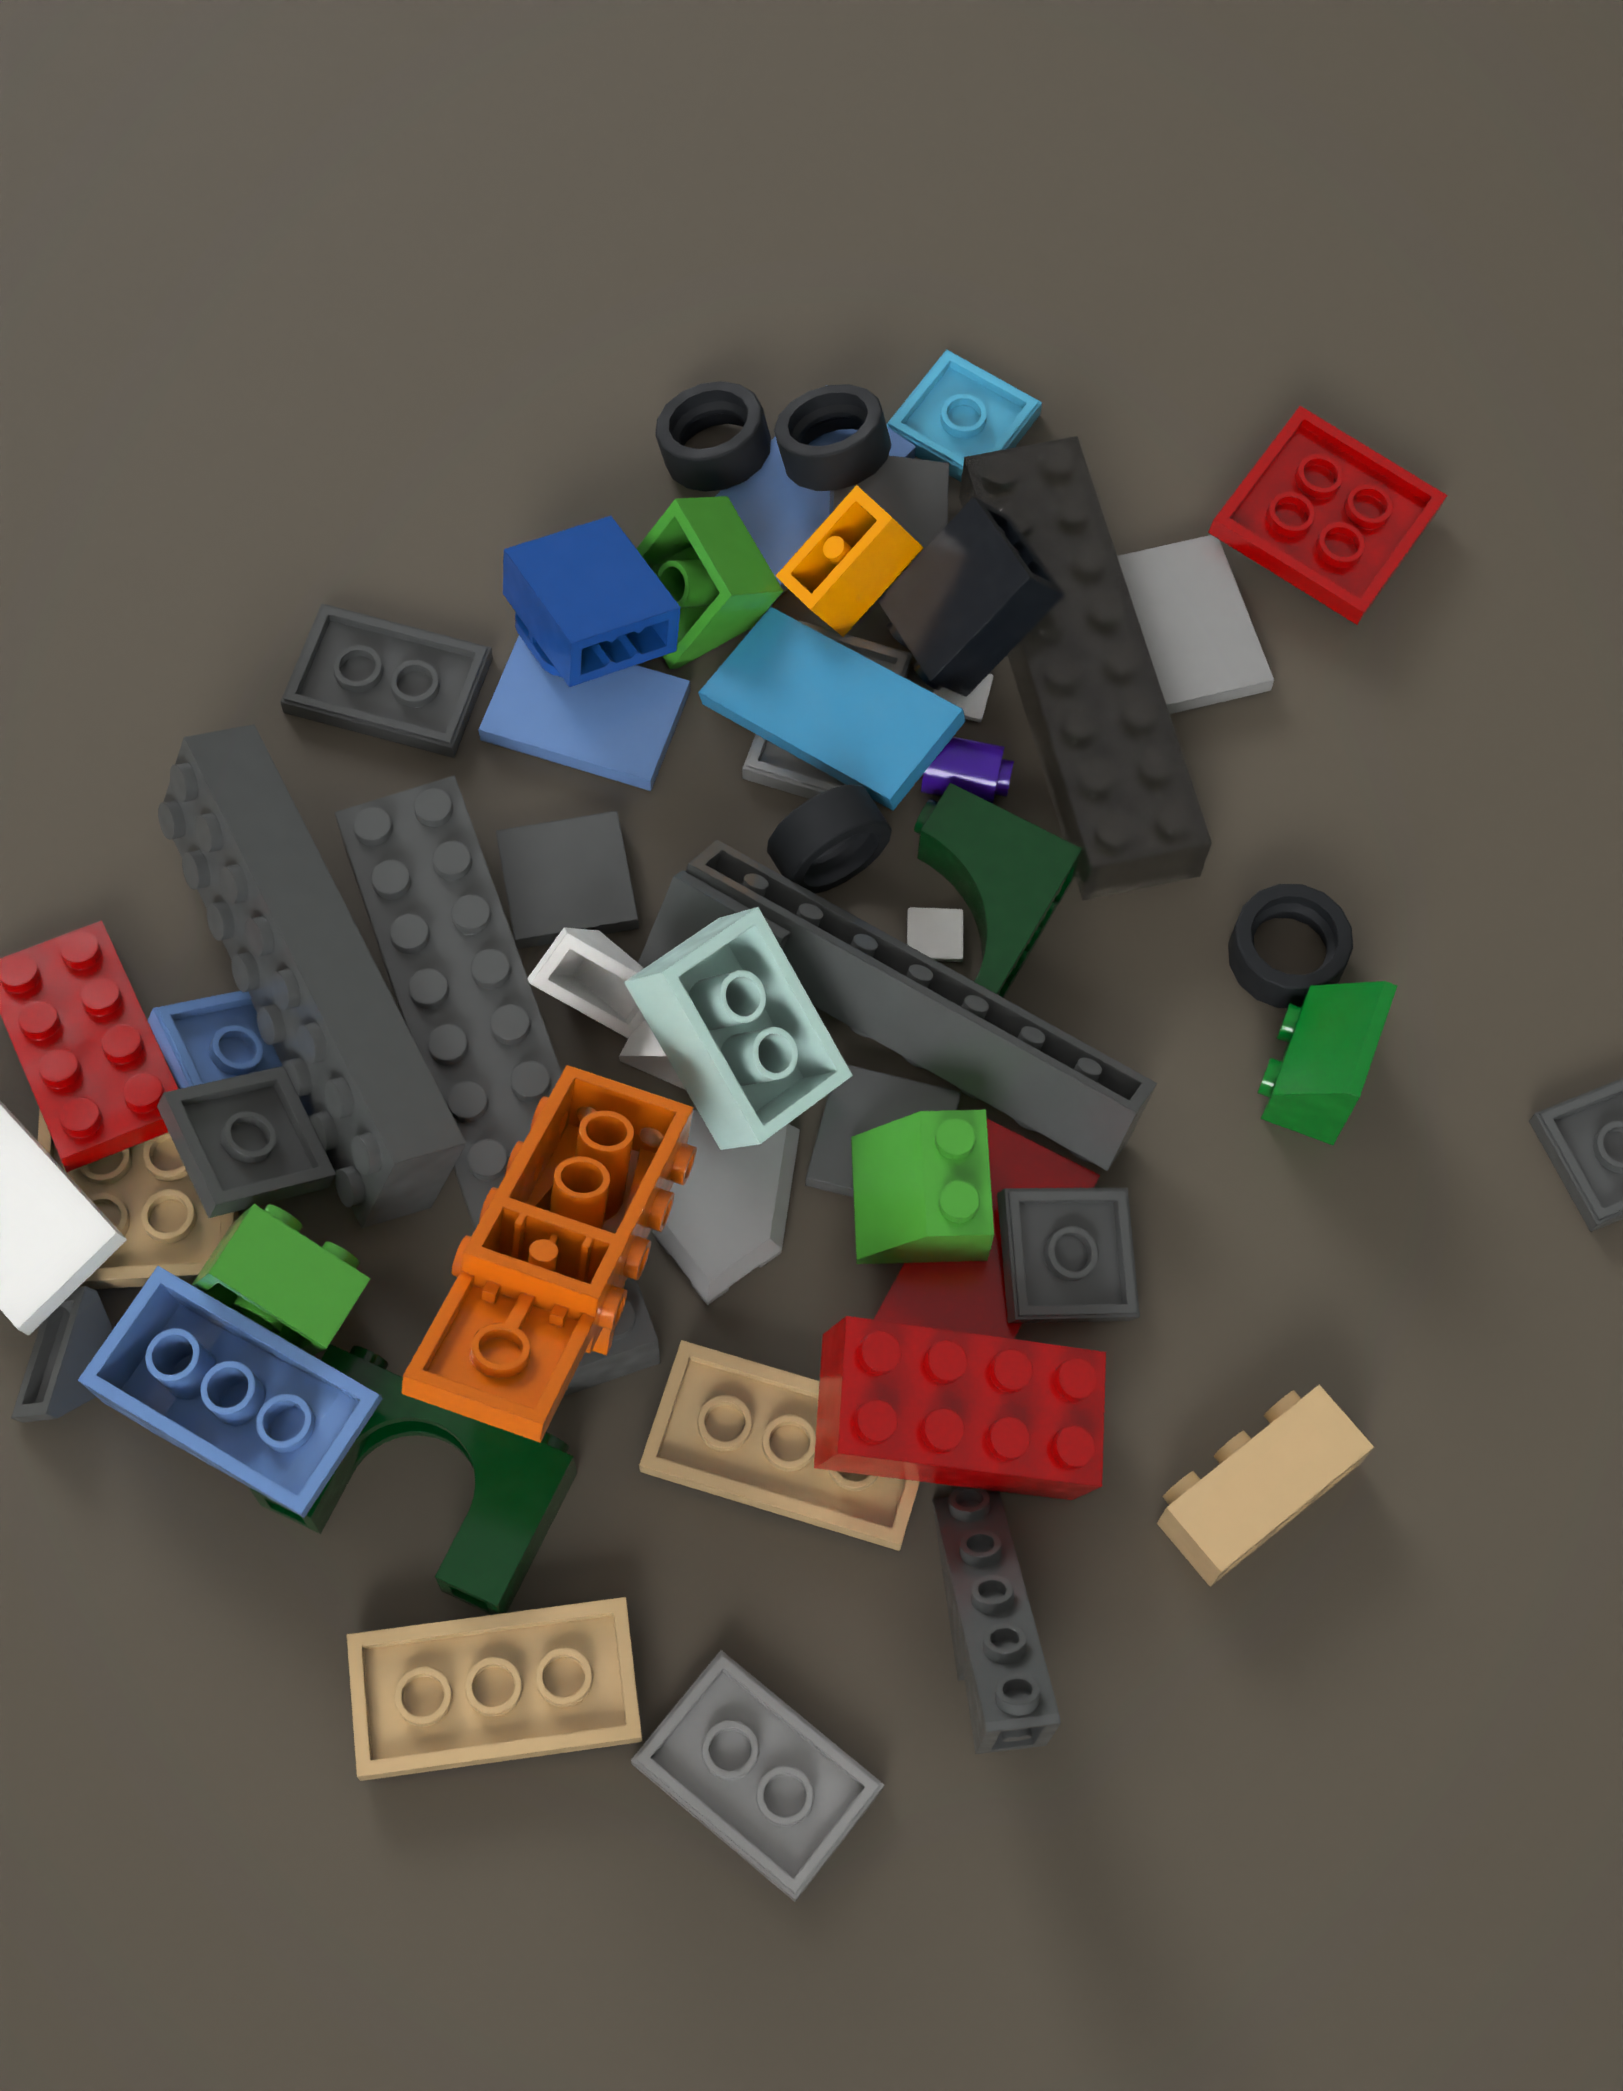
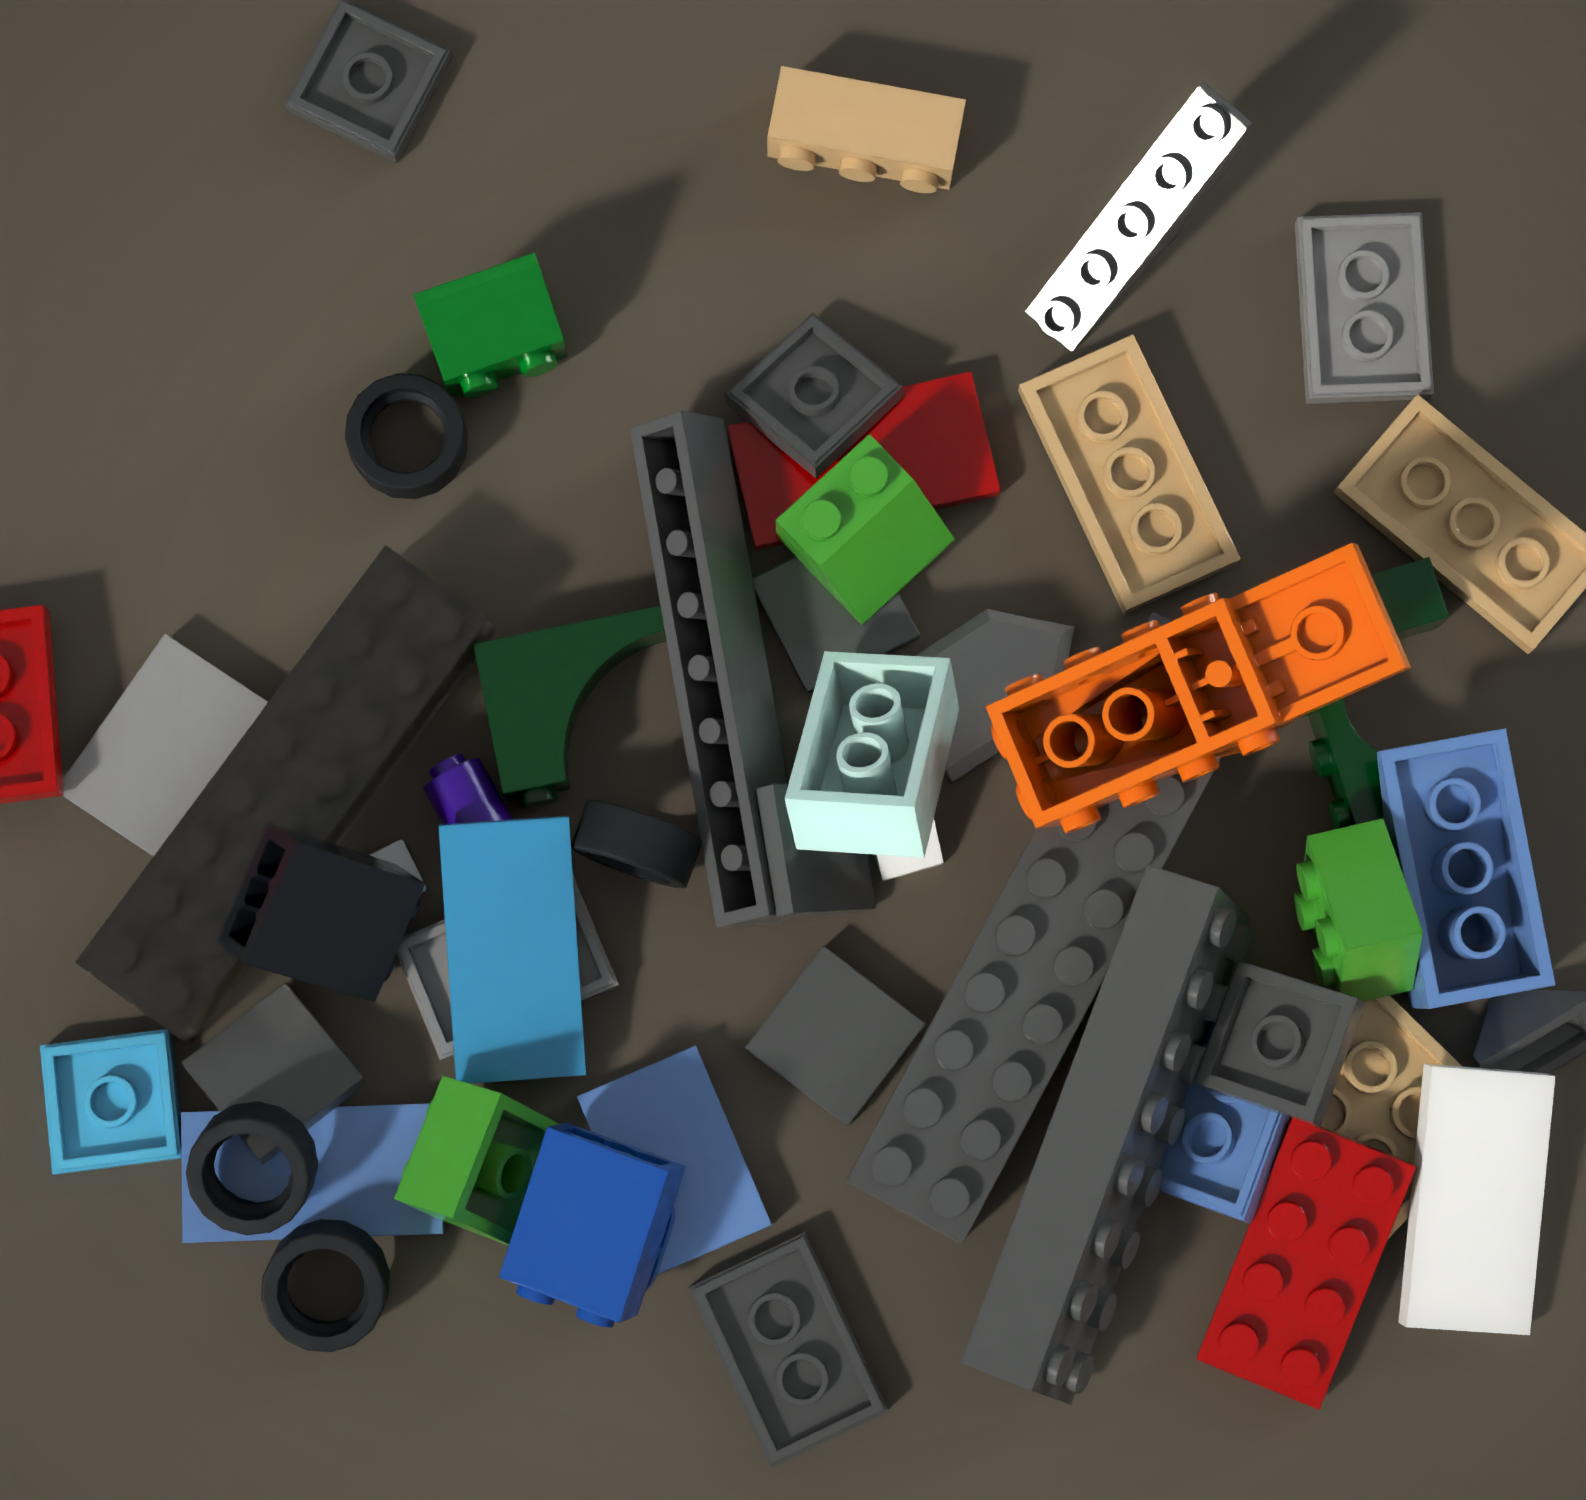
camera: 130 degrees left, 15 degrees up
(590, 975) = (906, 920): white slope -> none
(849, 561) = (371, 1040): light orange brick -> none
(936, 932) = (628, 715): white piece -> none
(960, 1409) = (1012, 361): red brick -> none

